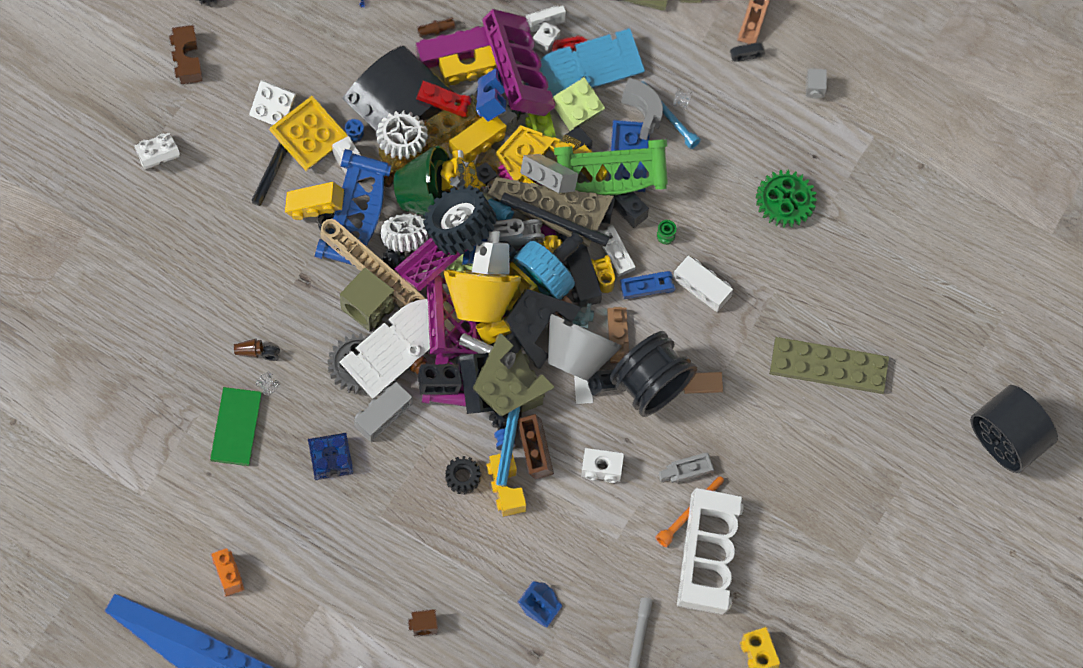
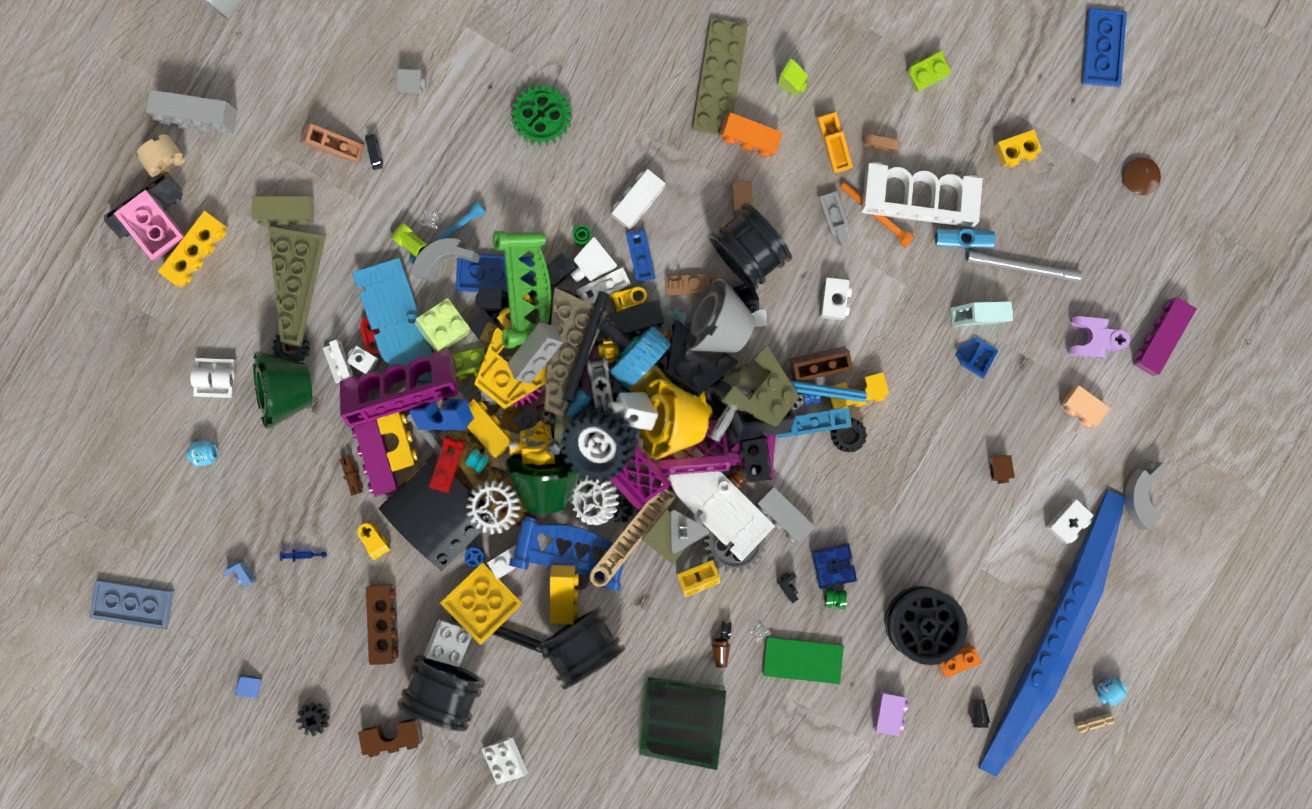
camera: 90 degrees left, 20 degrees up
(169, 594) = (979, 714): none -> black cone
(177, 505) = (890, 713): none -> lavender brick
(184, 304) = (683, 722): none -> windscreen
(226, 89) = (441, 694): none -> black wheel
(263, 211) = (581, 648): none -> black wheel
(266, 534) = (933, 629): none -> black wheel
(285, 43) = (376, 653): none -> reddish brown brick
(296, 456) = (835, 599): none -> green wheel
(309, 410) = (789, 590): none -> black bracket
(323, 326) = (698, 578): none -> yellow brick
(371, 304) = (684, 531): none -> light grey piece
(374, 44) = (374, 541): none -> yellow piece
(446, 123) = (477, 460): none -> teal wheel
(475, 438) = (819, 422): none -> dark azure slope
(586, 609) = (981, 313): none -> light aqua slope
(602, 140) = (492, 300): none -> black brick
(640, 240) = (592, 262): none -> white torso
(663, 77) = (406, 238): none -> lime piece
(665, 583) = (977, 238): none -> dark azure piece
(763, 516) = (881, 143): none -> medium nougat beam
(764, 470) = (834, 141): none -> light orange slope
(768, 386) = (750, 135): none -> orange brick
(828, 428) = (793, 78): none -> lime slope
(841, 566) = (928, 71): none -> lime bracket

